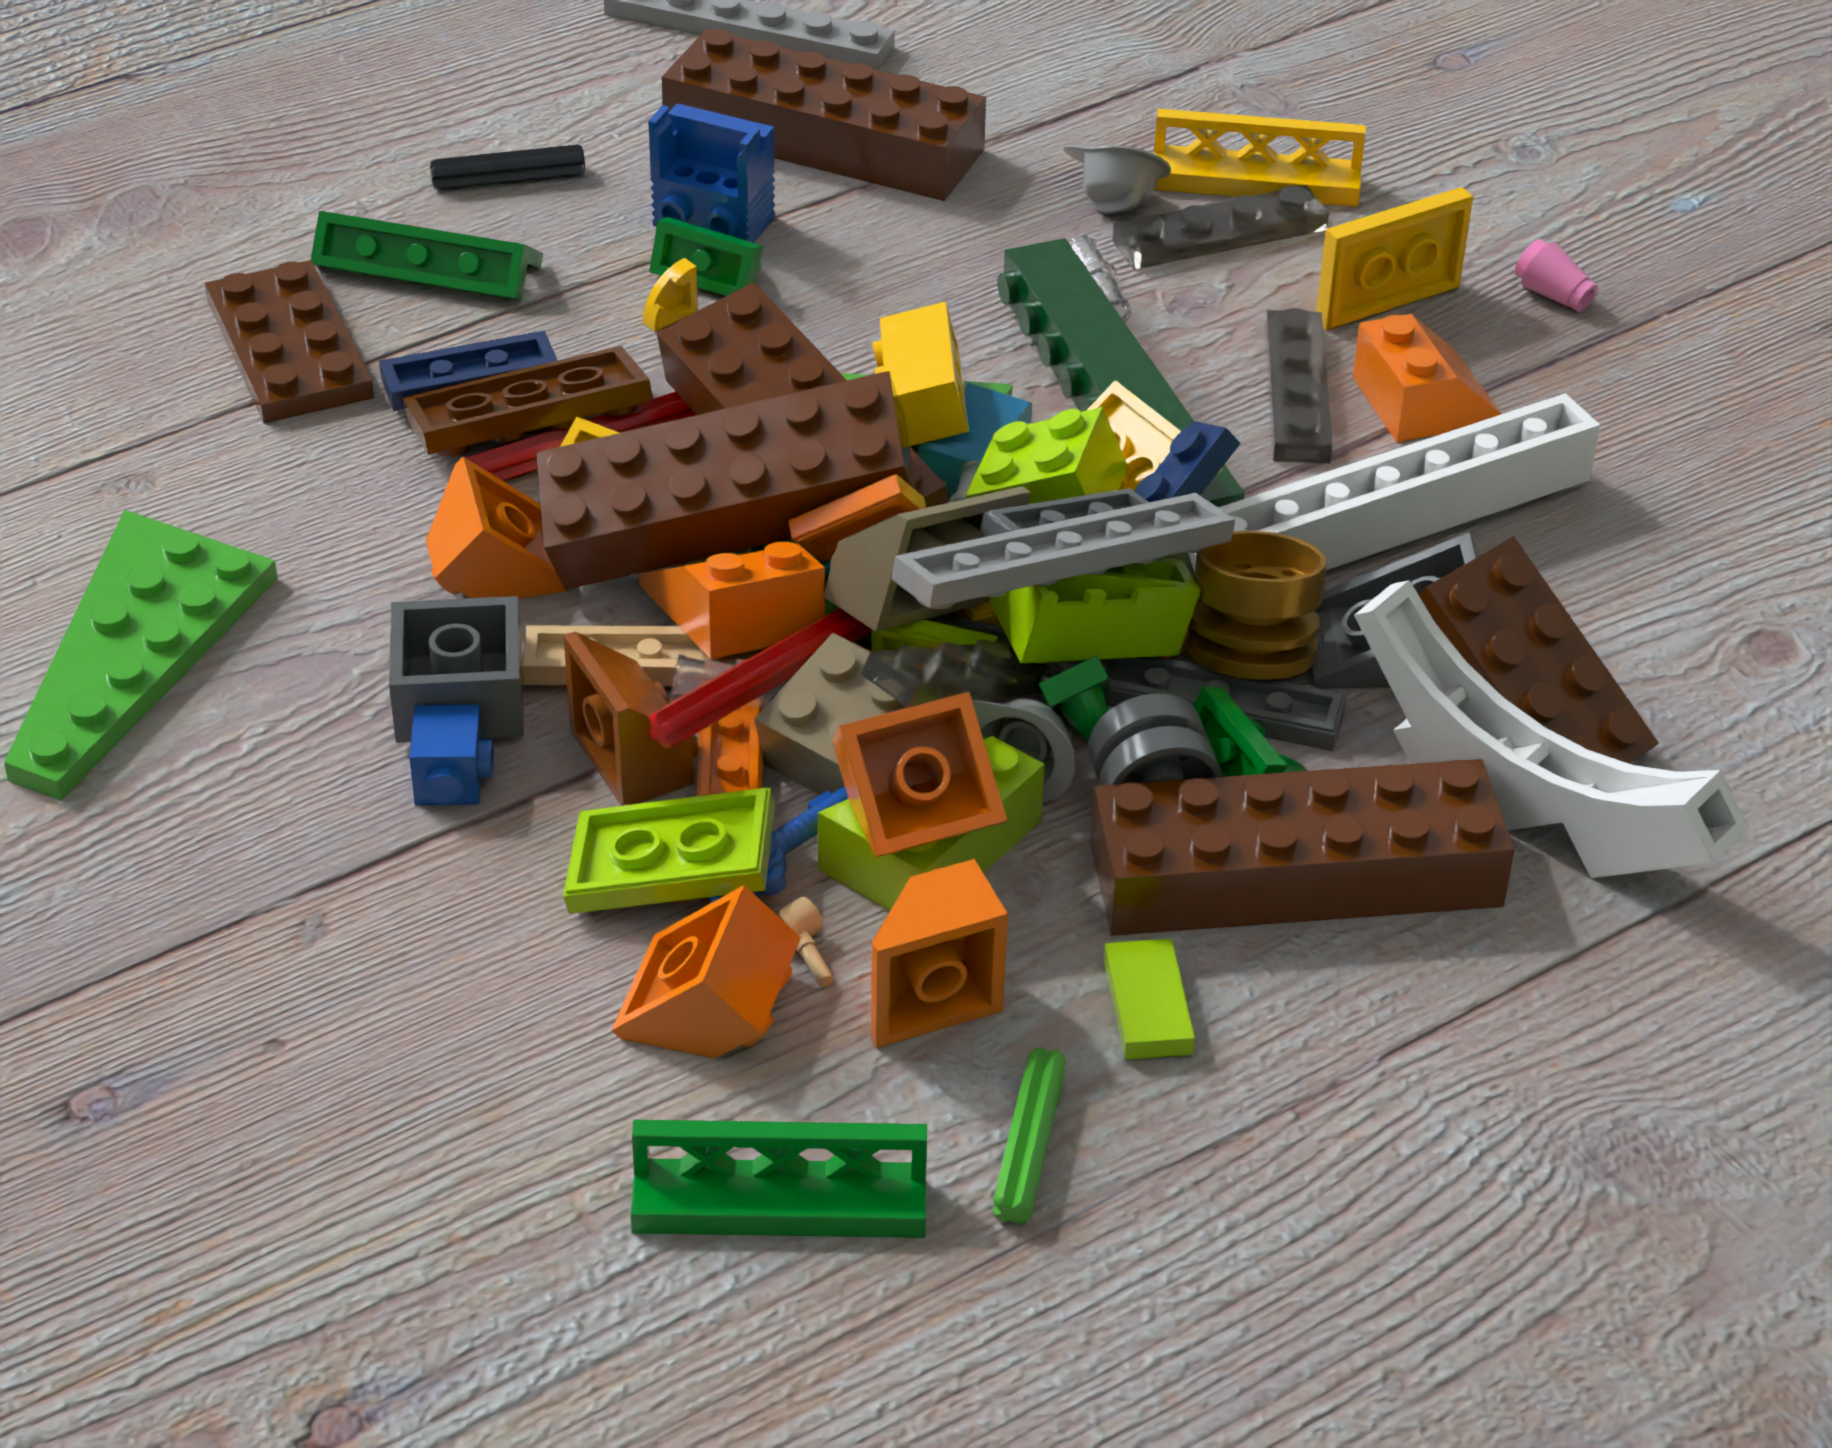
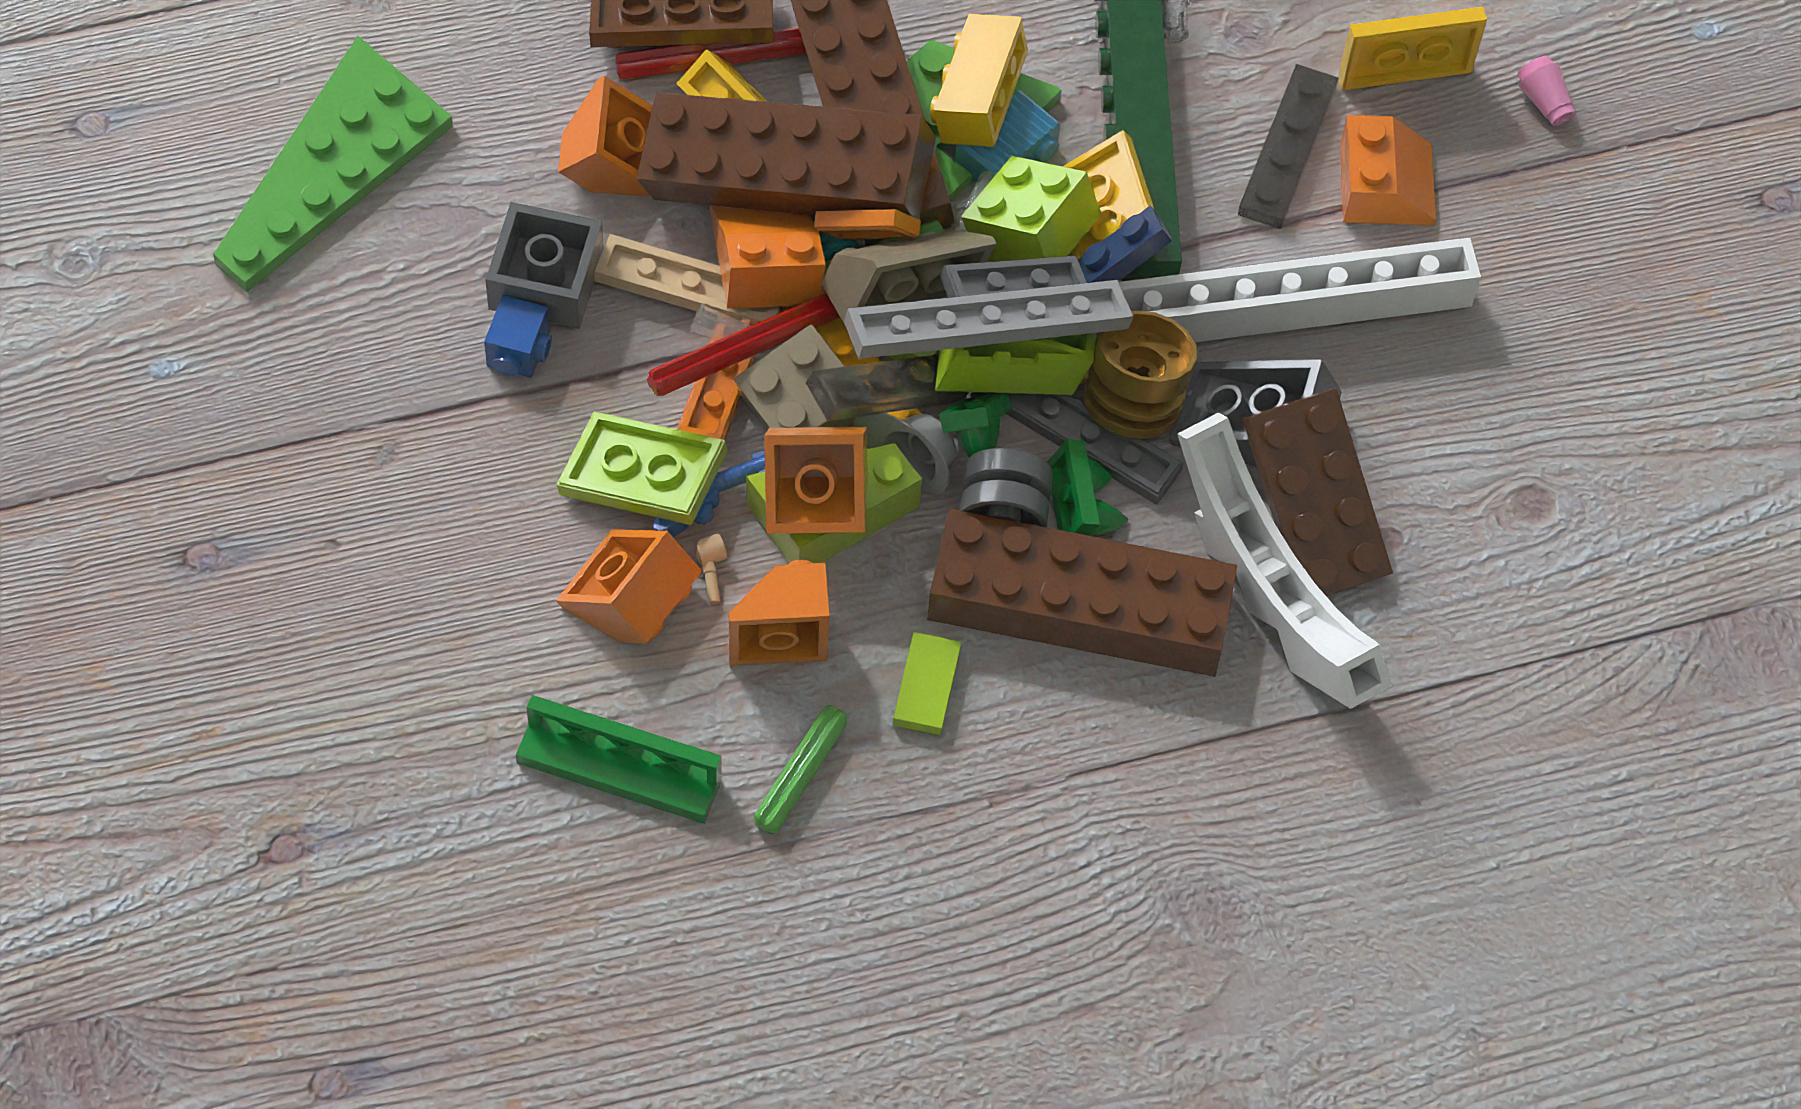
camera: 15 degrees right, 20 degrees up
(610, 721) = (646, 339): dark orange slope -> none

